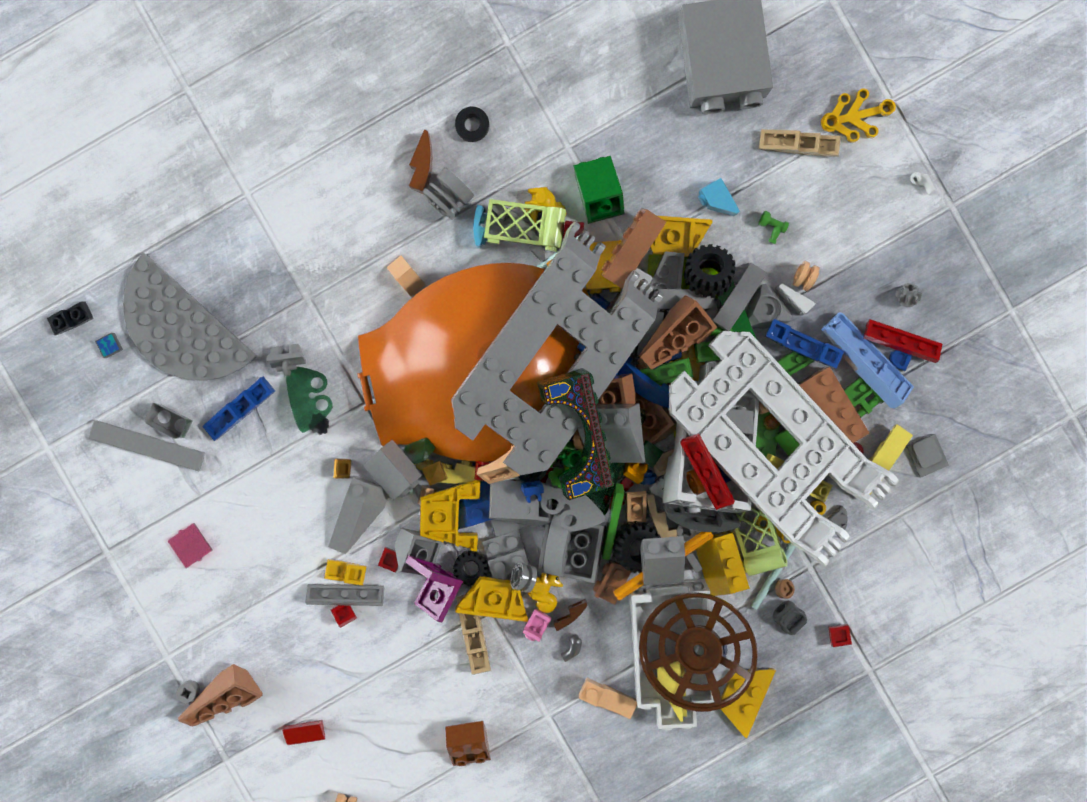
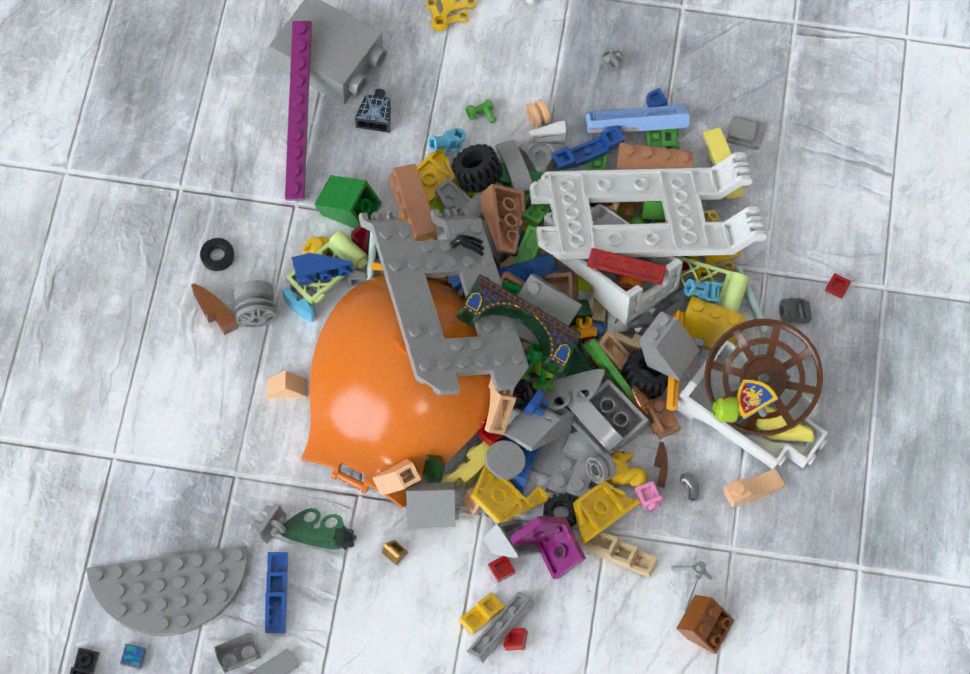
camera: 50 degrees left, 25 degrees down
(359, 510) = (441, 563): light grey wedge -> none
(389, 430) = (396, 477): none -> light nougat slope
(434, 473) = (460, 472): pearl gold slope -> none
(468, 501) = (505, 460): none -> light grey tile
(497, 713) = (697, 572): none -> light grey plant
(510, 215) = (317, 267): none -> blue slope
(607, 562) = (640, 400): none -> clear orange cylinder
(613, 396) = (512, 286): none -> green slope
(614, 331) = (468, 242): none -> black piece
(646, 643) = (726, 409): none -> lime head
(647, 78) = (298, 110): none -> magenta plate
(669, 662) = (754, 397): none -> shield
(700, 141) = (375, 112): none -> black torso
(718, 198) = (425, 127): medium azure slope -> none
(719, 224) = (449, 141): none -> medium azure connector
(745, 540) = (704, 290): none -> medium azure connector
(745, 709) = (837, 392): yellow wing -> none
(784, 588) = (768, 297): medium nougat tile -> none
(799, 143) = (436, 52): tan slope -> none
(903, 341) = (643, 87): red plate -> none

